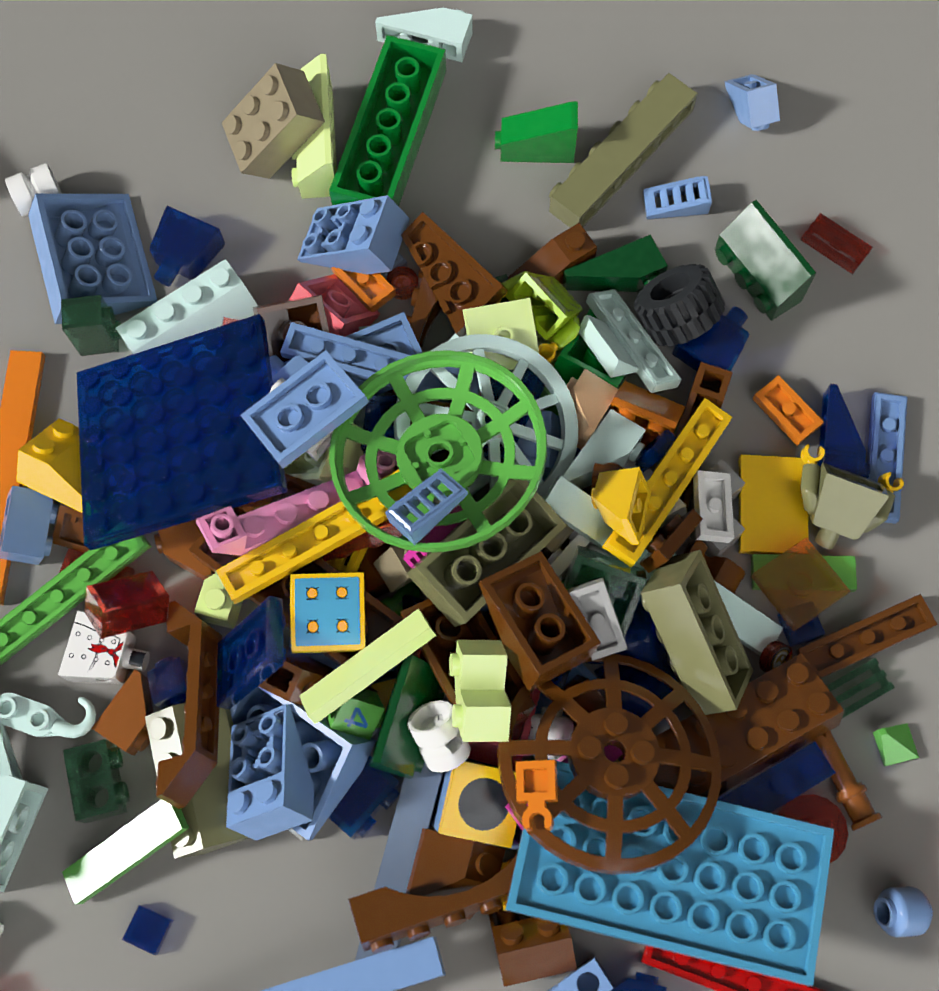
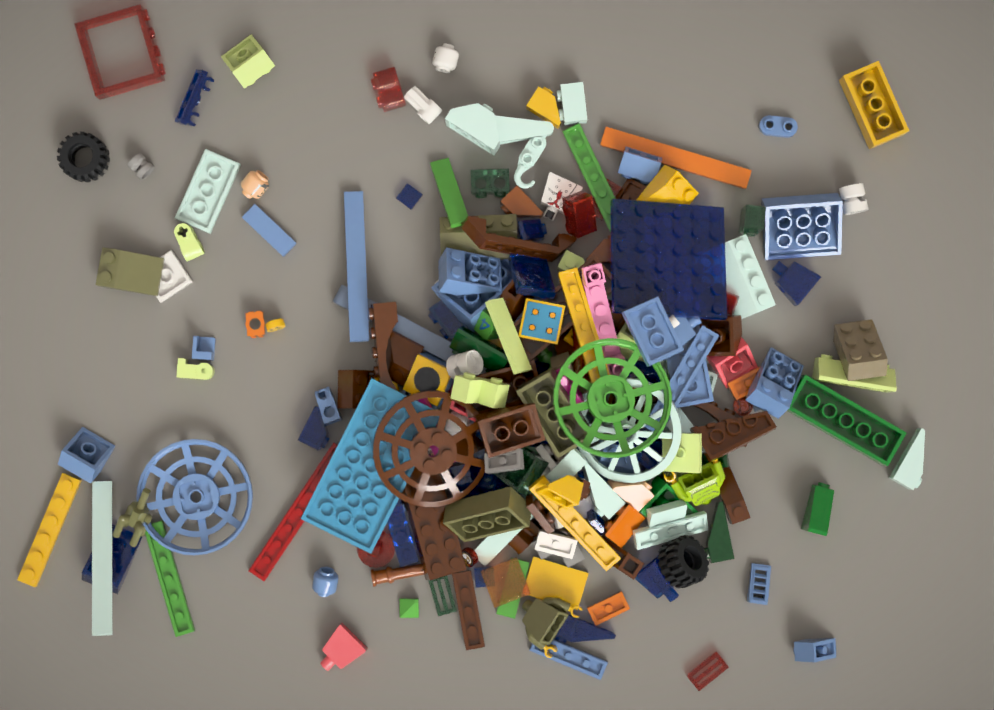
camera: 105 degrees right, 15 degrees up
(426, 522) = (569, 382): medium blue slope -> none
(536, 786) = (423, 407): orange plate -> none
(622, 152) = (797, 559): olive brick -> none
(764, 261) = (701, 620): slope -> none

